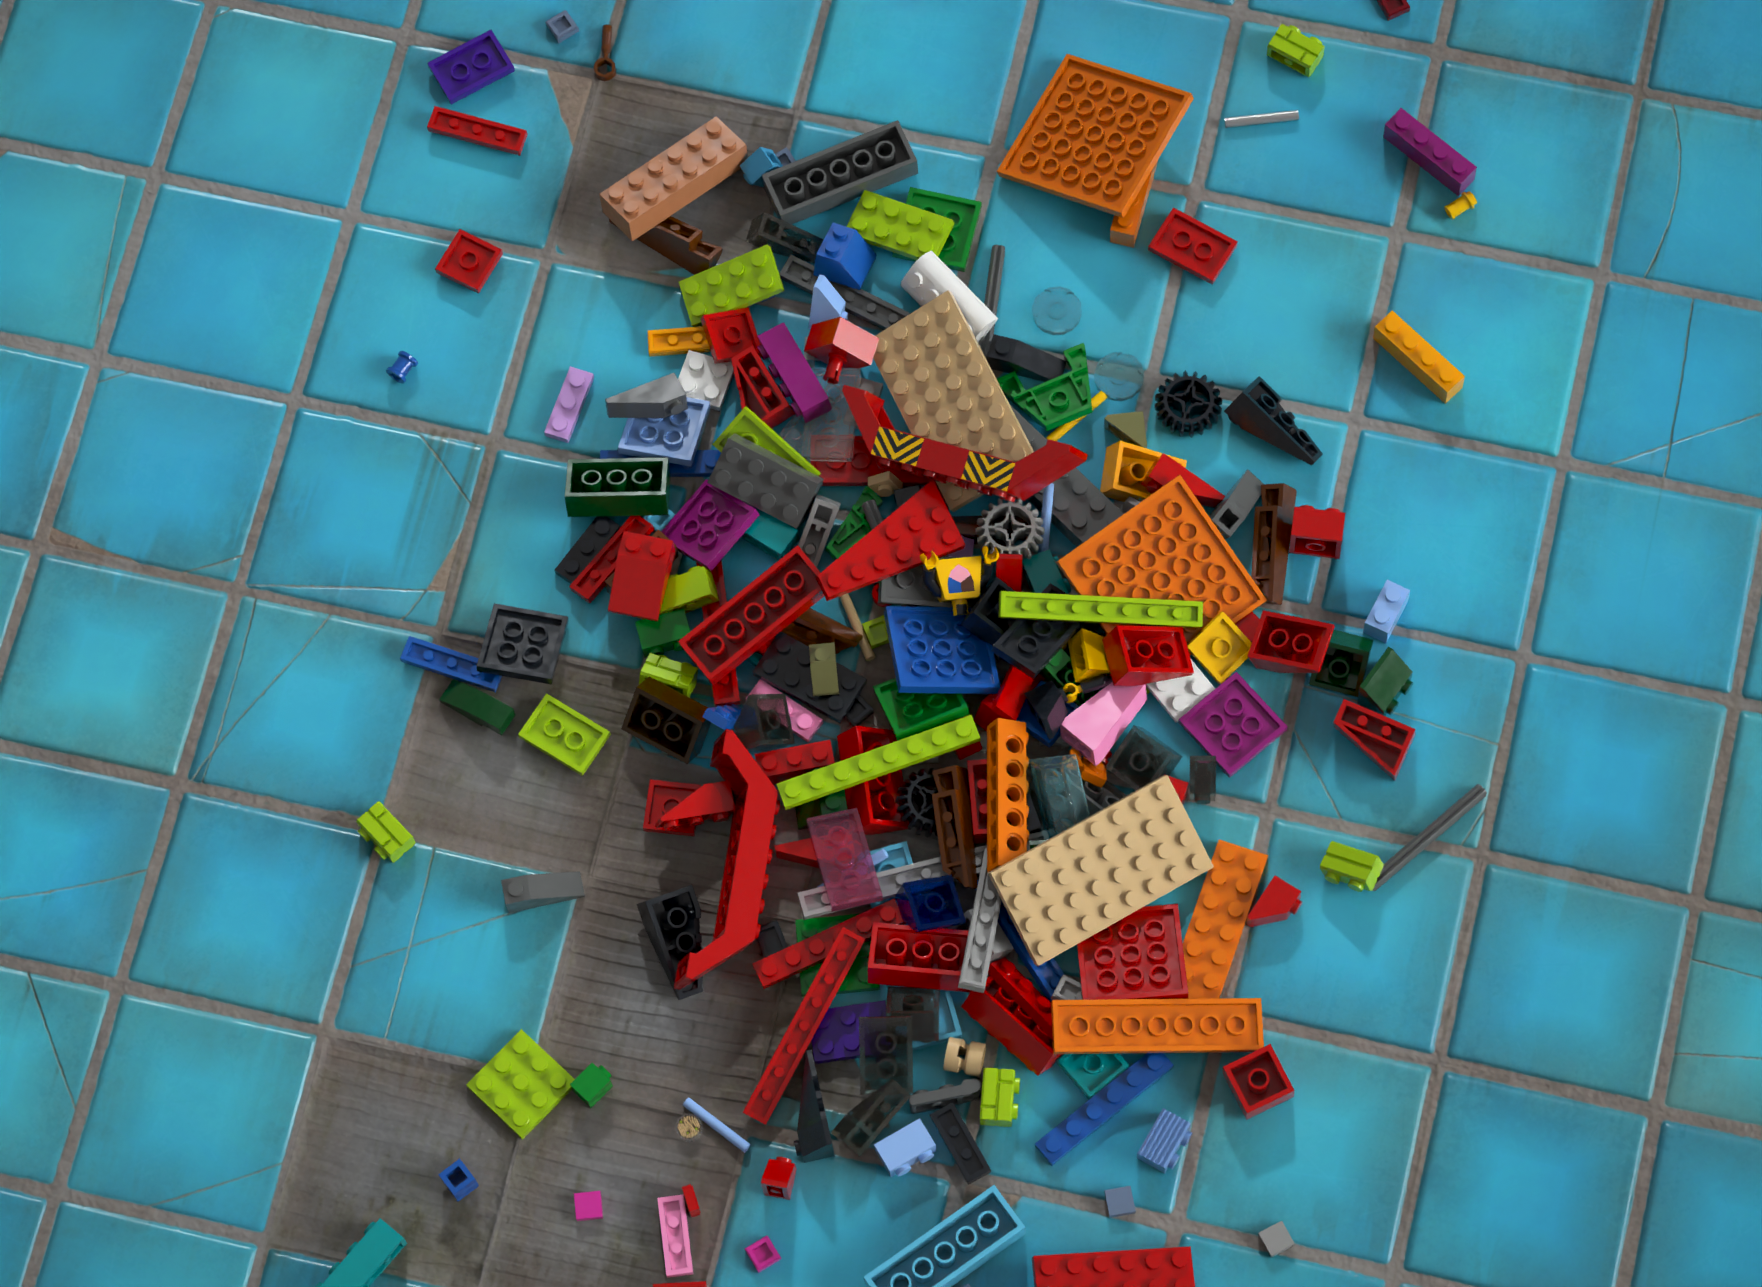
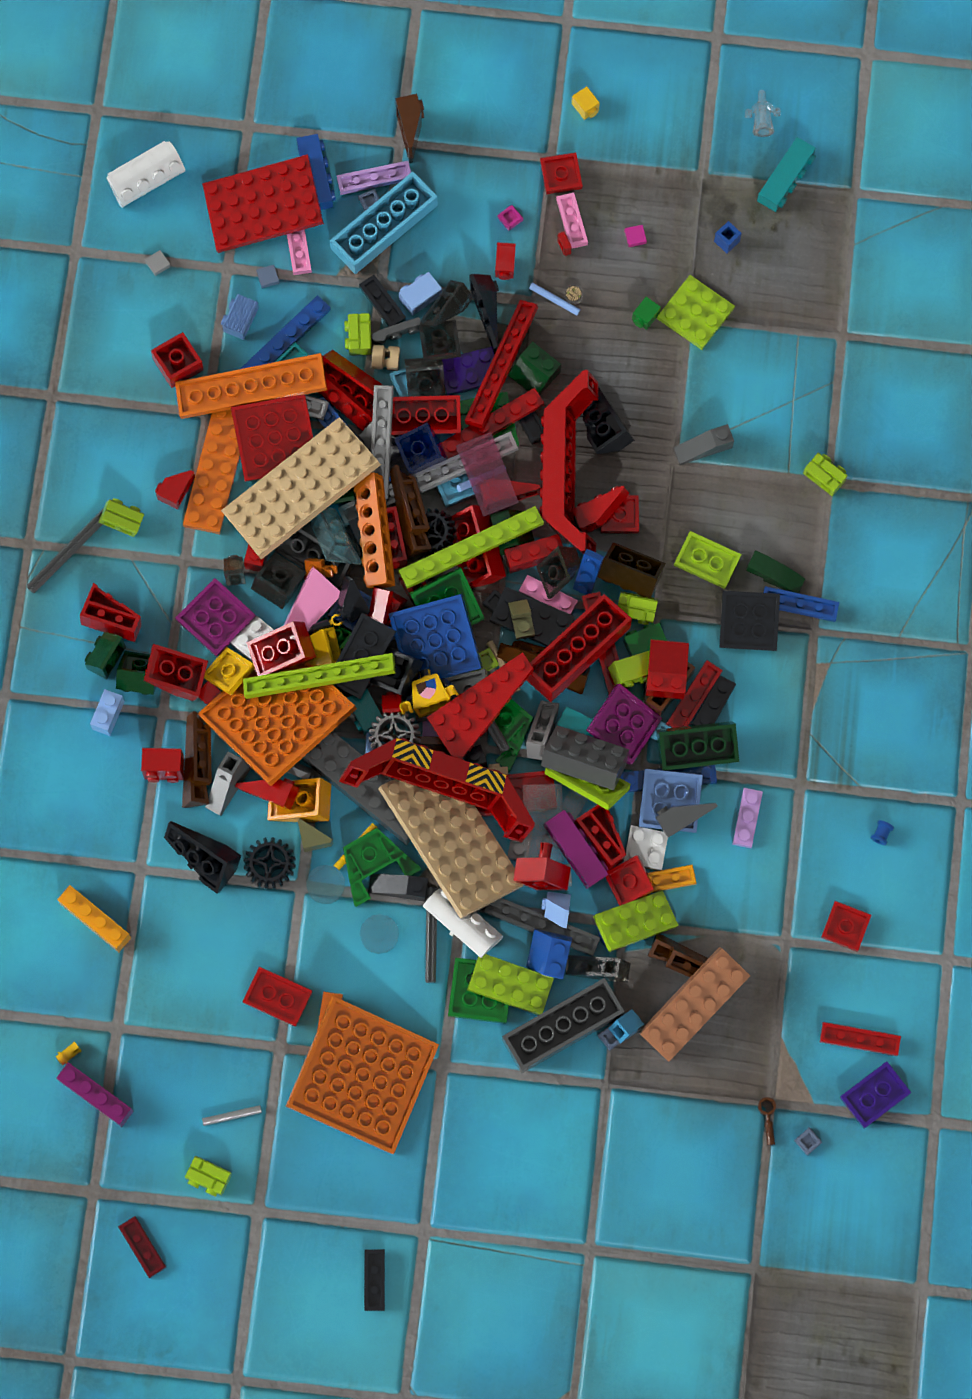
camera: 165 degrees right, 5 degrees up
(757, 1019) = (535, 369): none -> dark green slope
(1071, 1225) = (299, 252): none -> bright pink plate

